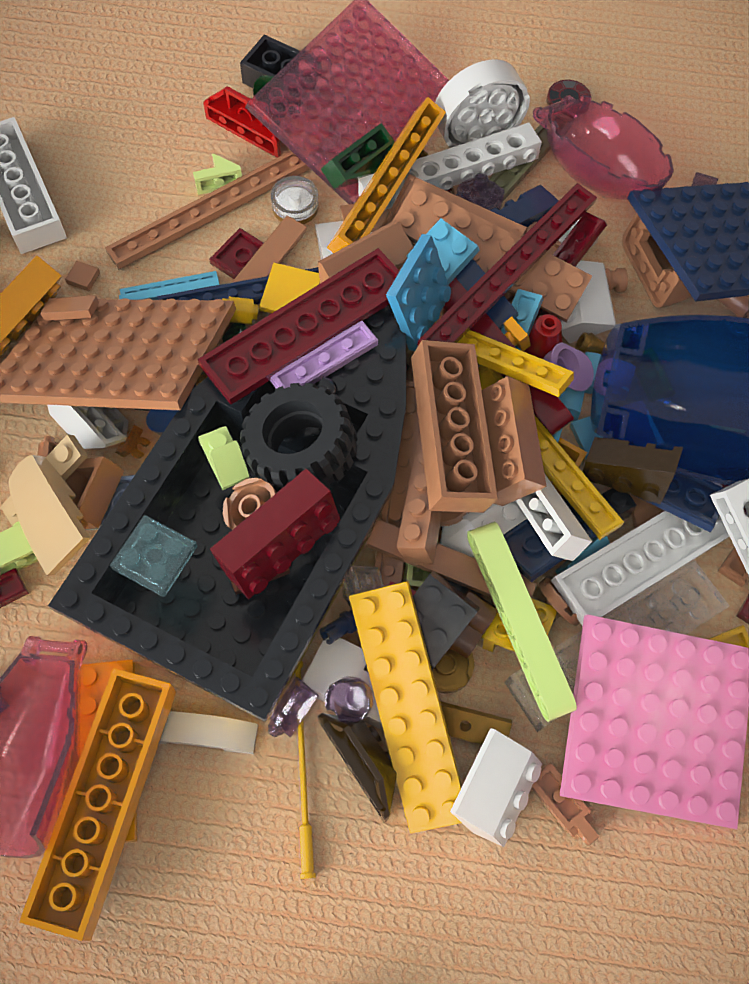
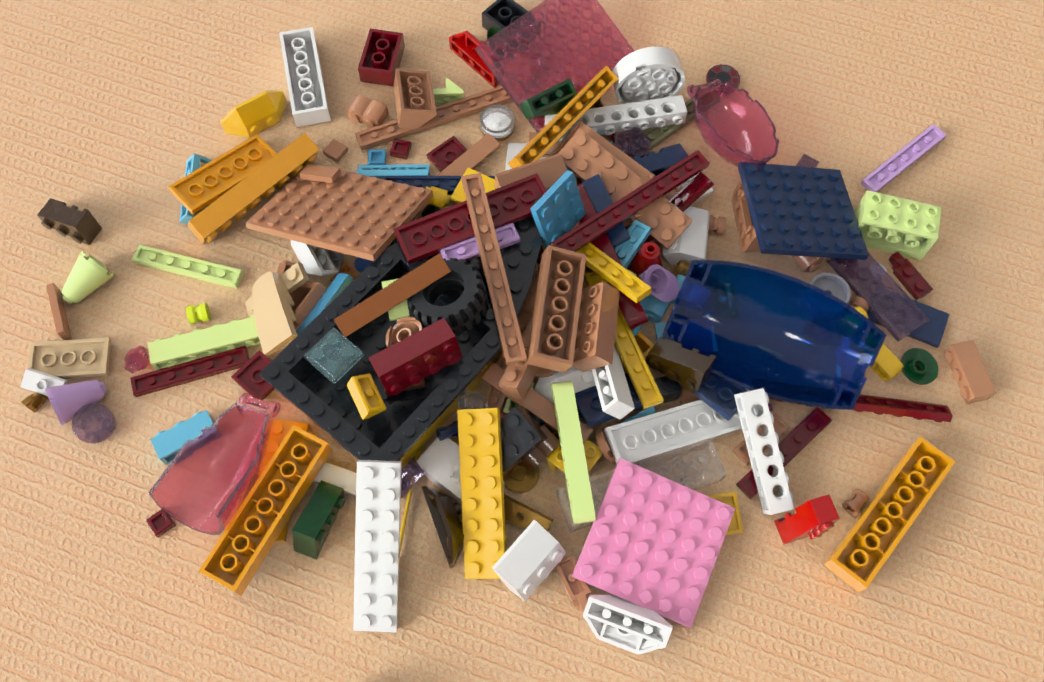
camera: 15 degrees right, 0 degrees up
(32, 610) = (249, 379): none -> dark red plate
(114, 216) = (367, 111): none -> nougat brick
(118, 142) = (381, 57): none -> dark red brick
(125, 470) = (335, 288): none -> dark azure tile
(142, 274) = (377, 156): none -> dark azure tile
(172, 258) = (400, 149): none -> dark red tile
(175, 187) = (413, 98): none -> nougat slope
(178, 797) = (317, 519): none -> dark green wedge
(215, 604) = (366, 395): none -> yellow slope
(220, 452) = (392, 295): none -> dark orange tile
(279, 818) = (377, 545): none -> white plate
(349, 699) = (443, 479): clear purple hair -> none
(354, 389) = (493, 269): none -> nougat plate
(453, 248) = (591, 182): medium azure plate -> none
(516, 334) = (623, 253): light orange plate -> none
(654, 845) = (626, 624): none -> white wedge

